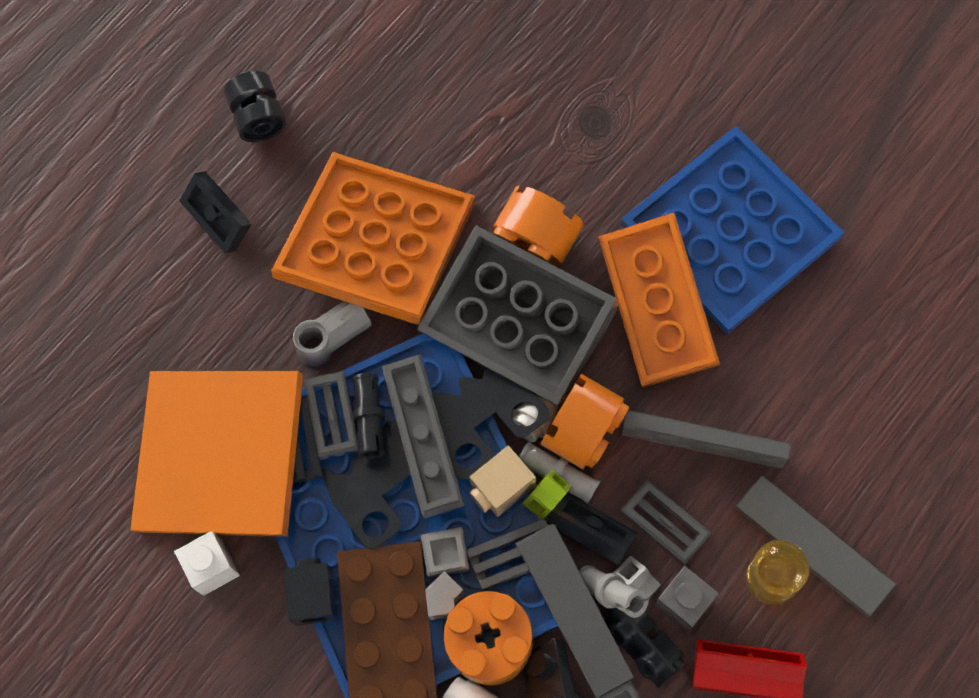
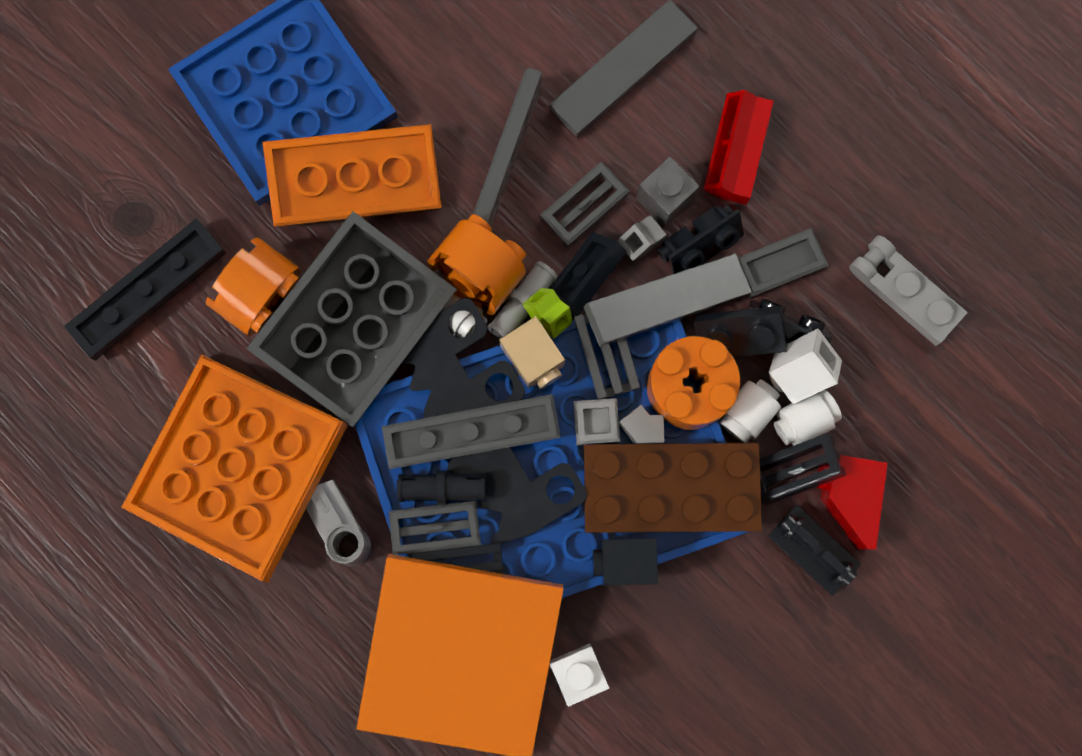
camera: 90 degrees left, 10 degrees up
(215, 212) = (174, 646): black plate -> none
(254, 106) = (40, 593): black wheel -> none
(529, 141) = (145, 290): none -> black plate
(613, 591) = (656, 258): light grey pin -> none
(777, 572) = (650, 102): clear yellow wheel -> none

